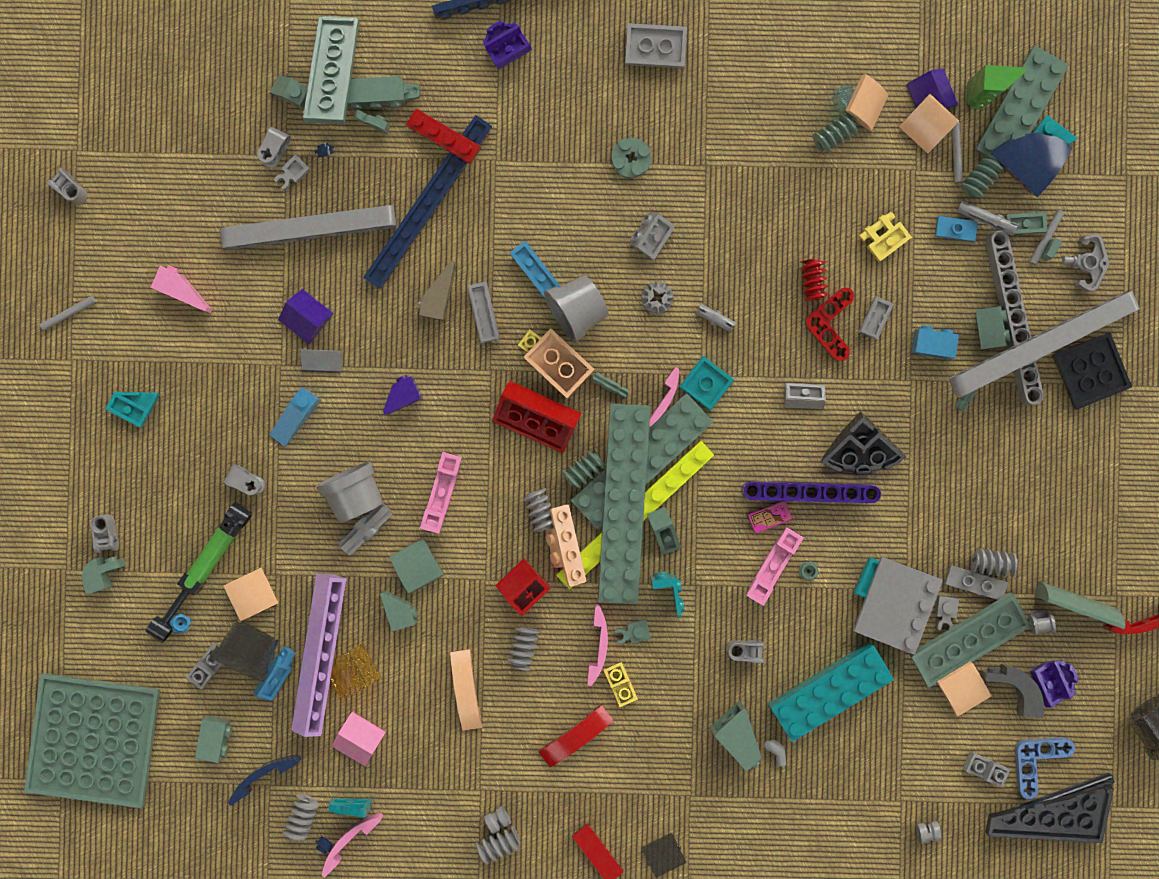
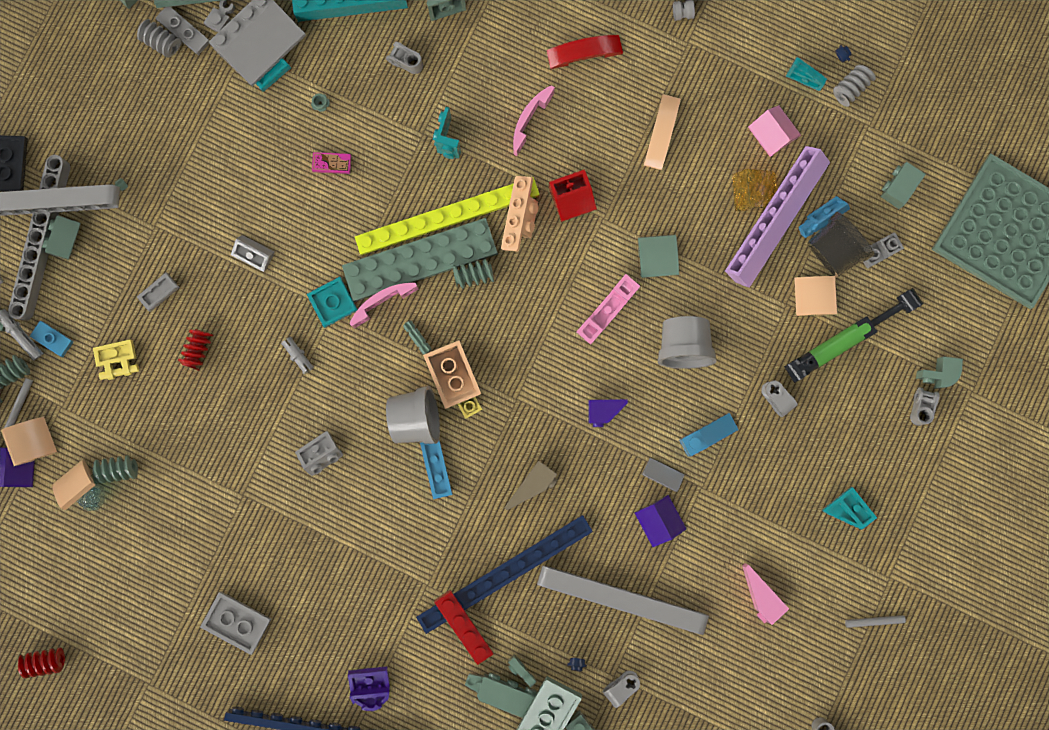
camera: 155 degrees left, 5 degrees down
(185, 623) = (884, 297): dark azure plate -> none
(282, 765) = (850, 138): dark blue slope -> none
(294, 170) = (612, 658): light grey plate -> none
(365, 529) = (690, 306): light grey piece -> none
(365, 825) = (821, 51): bright pink slope -> none
(398, 611) = (690, 223): sand green slope -> none
(483, 312) = (499, 452): light grey plate -> none
(523, 648) = (595, 143): light grey piece -> none
(536, 416) = (494, 338): red slope -> none
(539, 510) = (527, 256): light grey piece -> none
(620, 684) = (526, 76): light yellow slope -> none
(623, 503) = (451, 229): sand green plate -> none
(636, 631) = (491, 116): sand green plate -> none
(640, 151) = (305, 543): sand green plate -> none
(655, 306) = (346, 402): light grey gear -> none
(664, 530) = (428, 191): sand green slope -> none
(773, 566) = (348, 119): bright pink slope -> none
(820, 492) = (278, 163): dark purple beam -> none
(824, 319) = (203, 311): red beam -> none
(862, 449) = (224, 185): black brick -> none
(935, 343) = (117, 246): dark azure brick -> none

